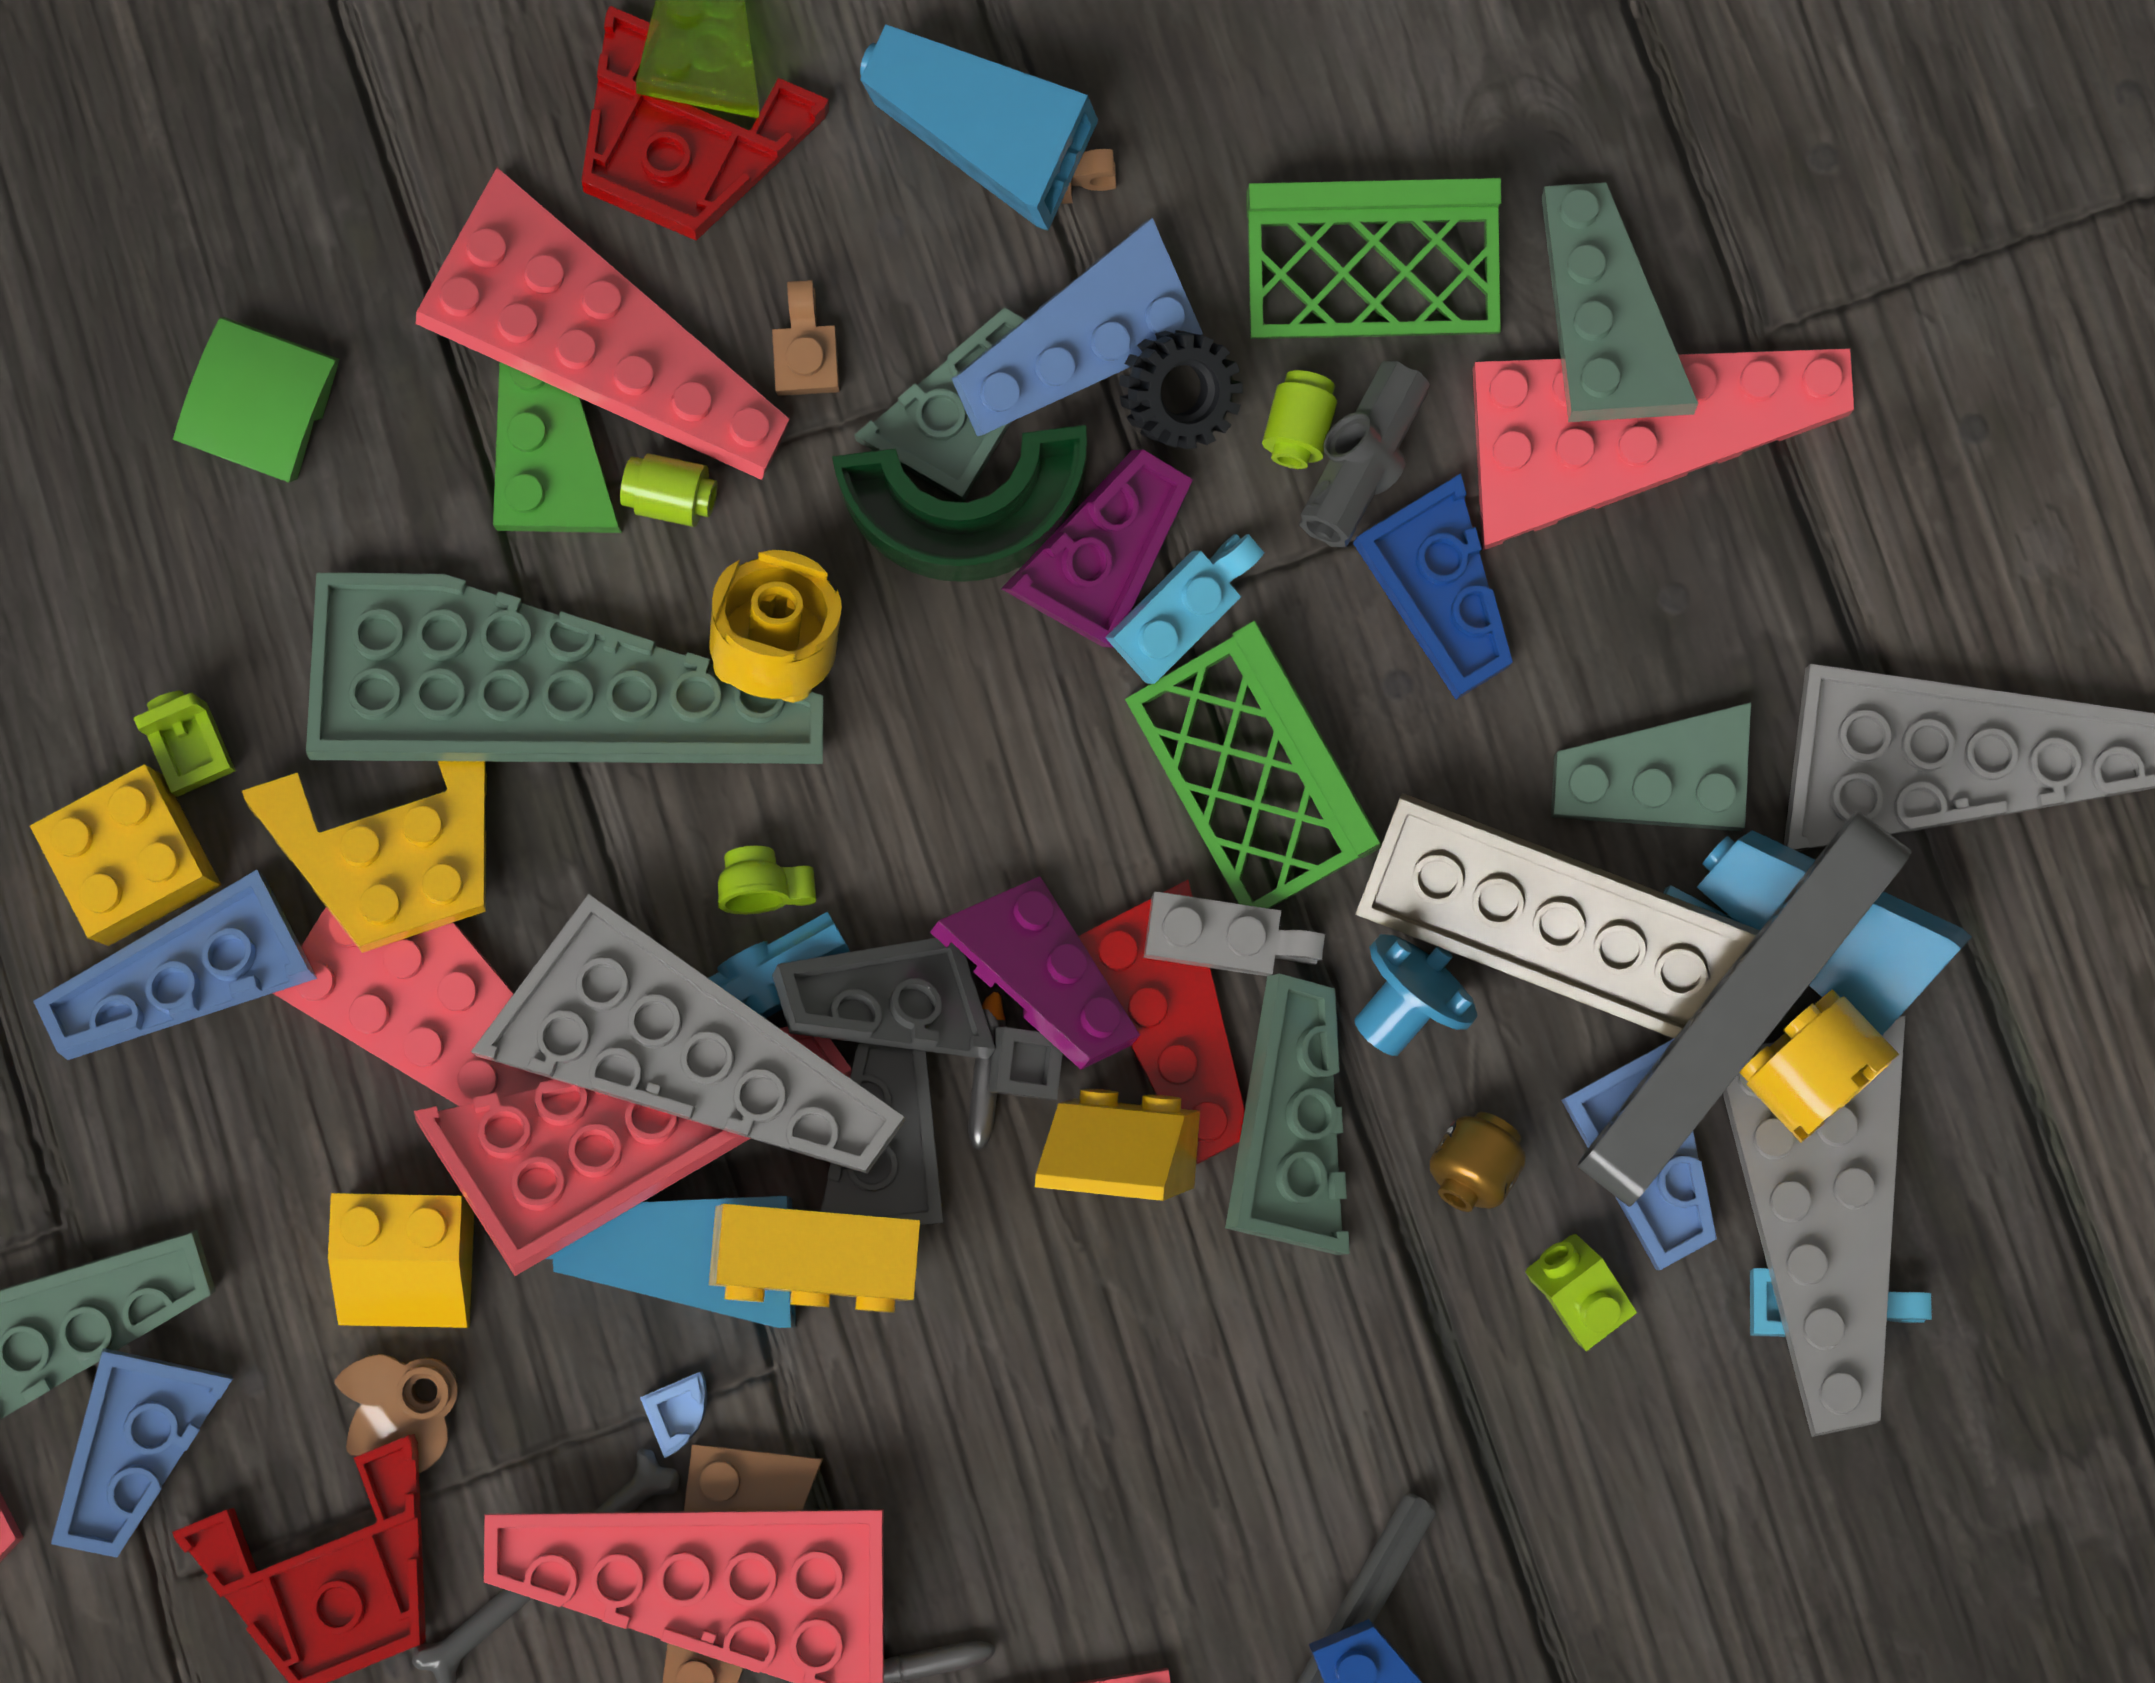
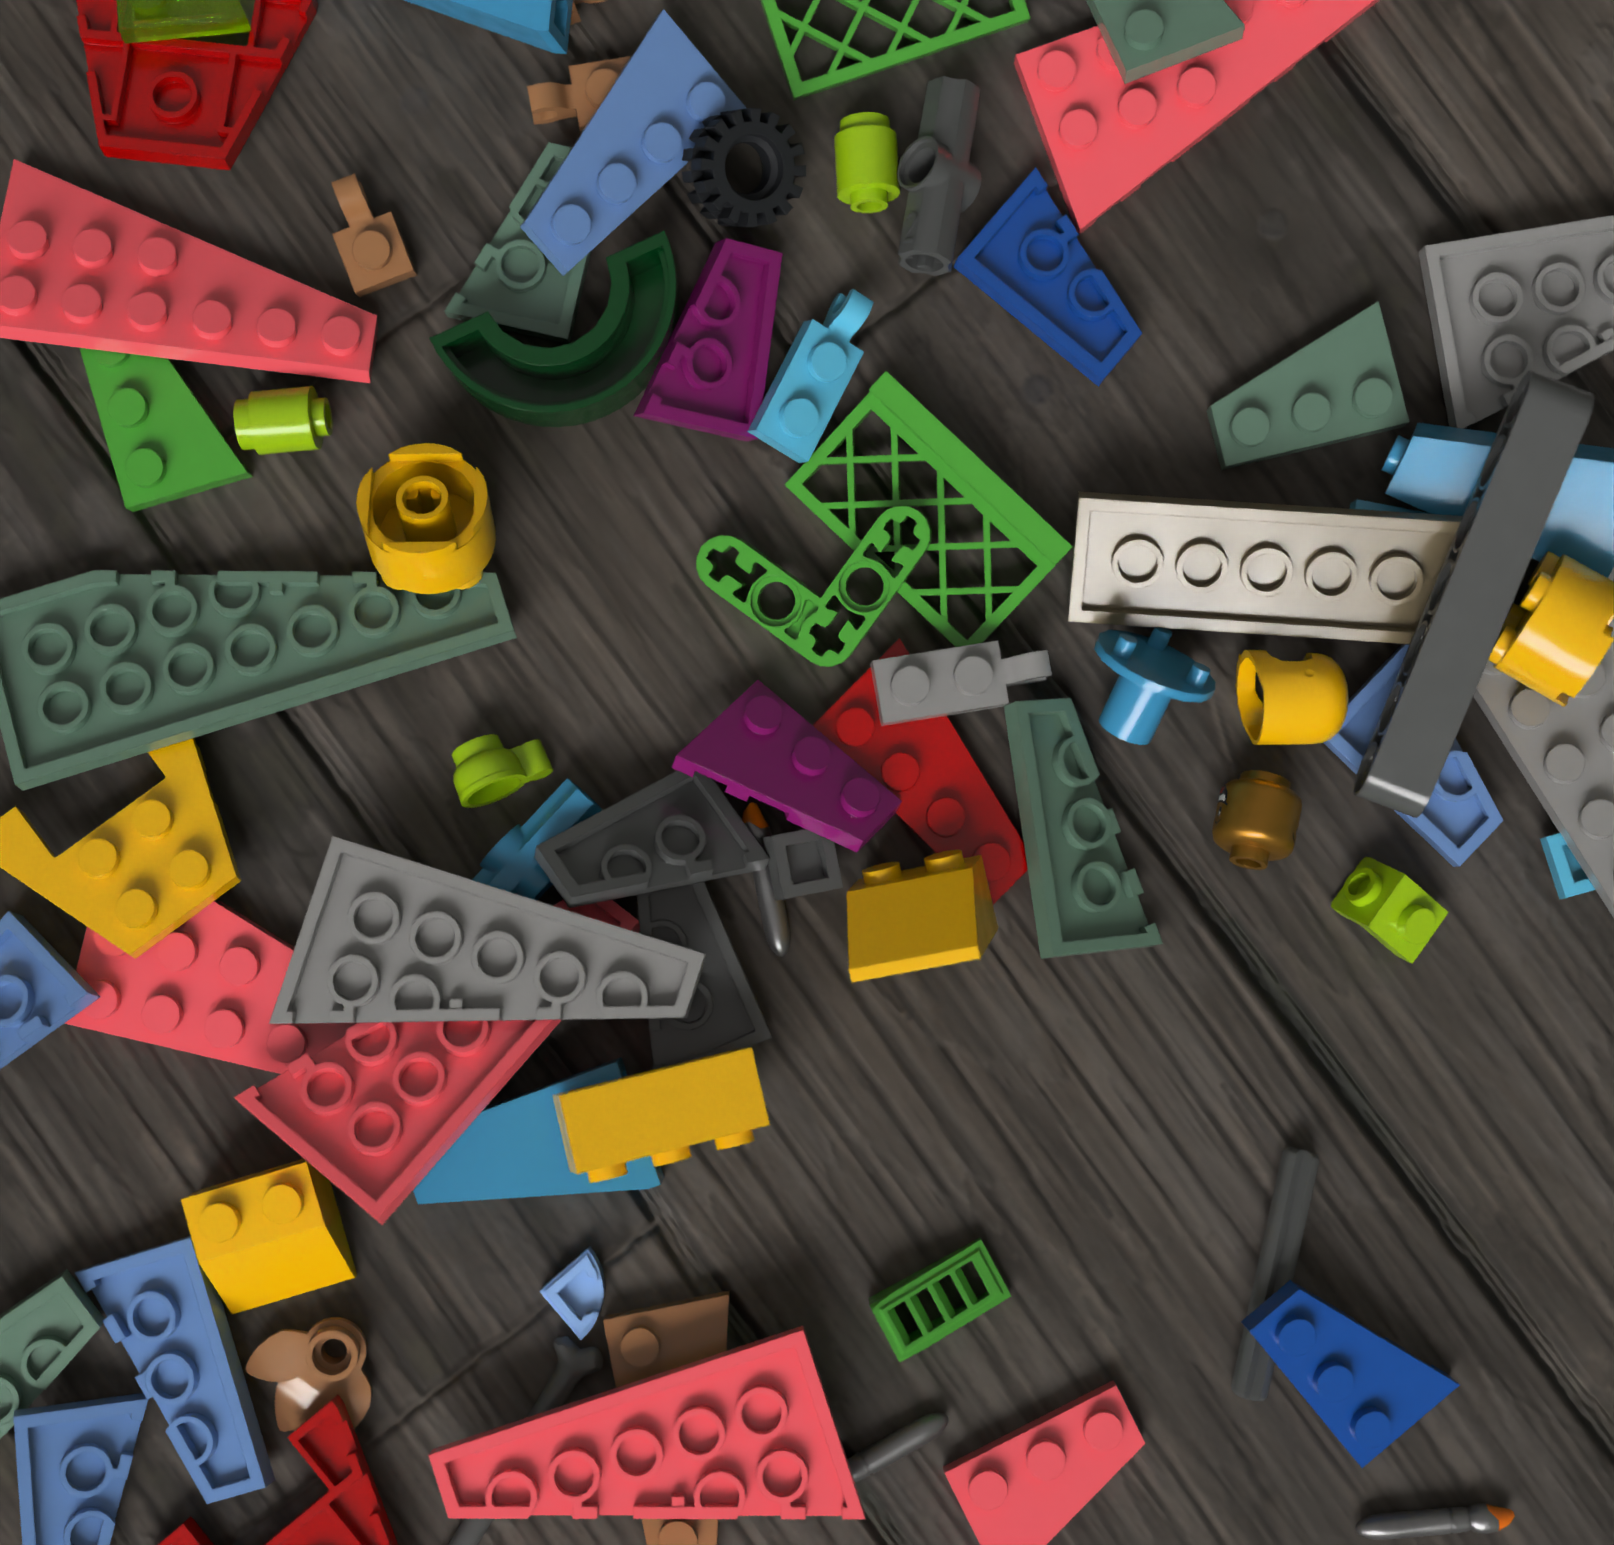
camera: 20 degrees left, 5 degrees up
(280, 1342) = (186, 1361): none -> medium blue wing
(969, 1539) = (930, 1332): none -> bright green slope
(1058, 269) = (579, 99): none -> medium nougat plate
(1112, 823) = (810, 606): none -> bright green beam
(1546, 1055) = (1300, 698): none -> yellow helmet

